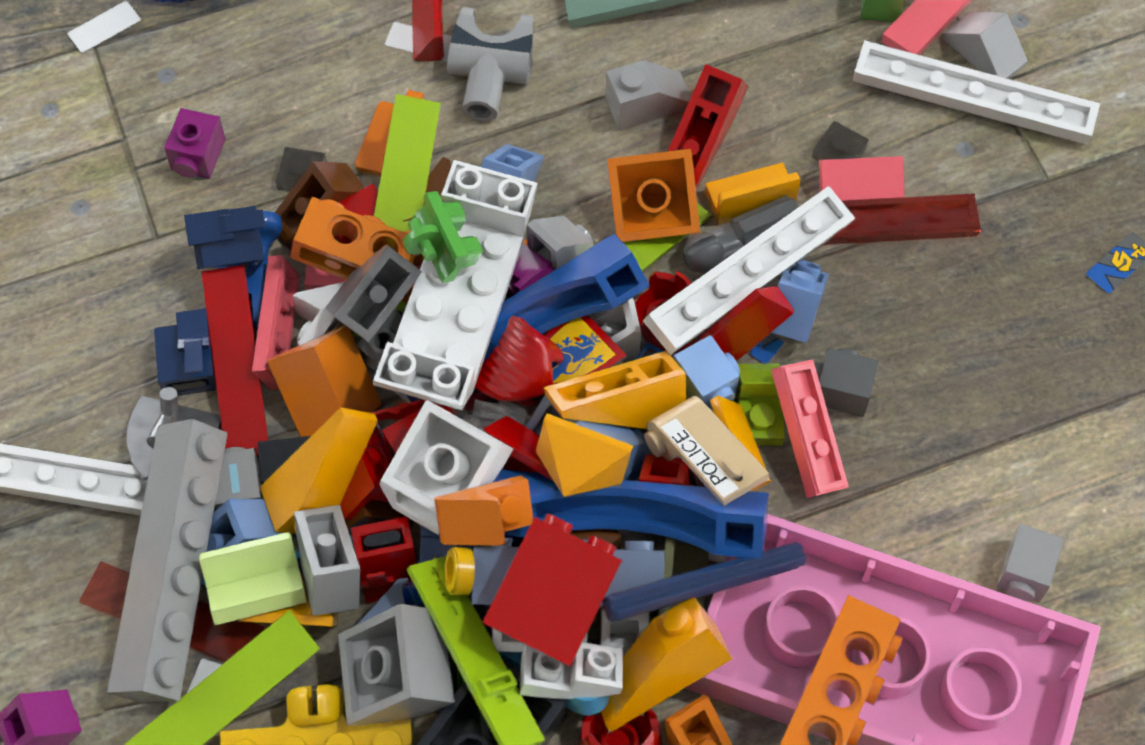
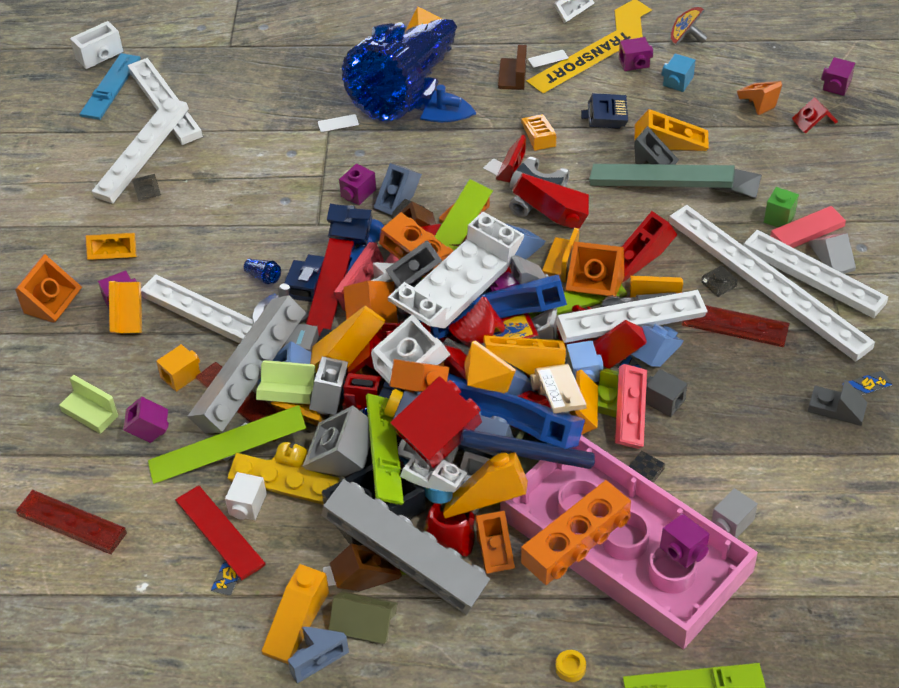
camera: 25 degrees right, 15 degrees down
(46, 598) = (179, 367): none -> light orange brick
(106, 360) = (264, 270): none -> clear blue cone
(265, 133) = (397, 185): none -> sand blue slope
(437, 238) = (456, 245): bright green hips -> none
(537, 84) = (555, 201): none -> red slope
(584, 181) = (560, 256): none -> light orange panel
(644, 93) = (614, 222): light grey slope -> none
(863, 177) = (725, 296): coral tile -> none
(867, 524) = (647, 466): none -> tile
(917, 127) = (772, 283): none -> white plate
(999, 654) = (684, 541): none -> magenta brick
(1103, 314) = (843, 405): none -> dark grey slope

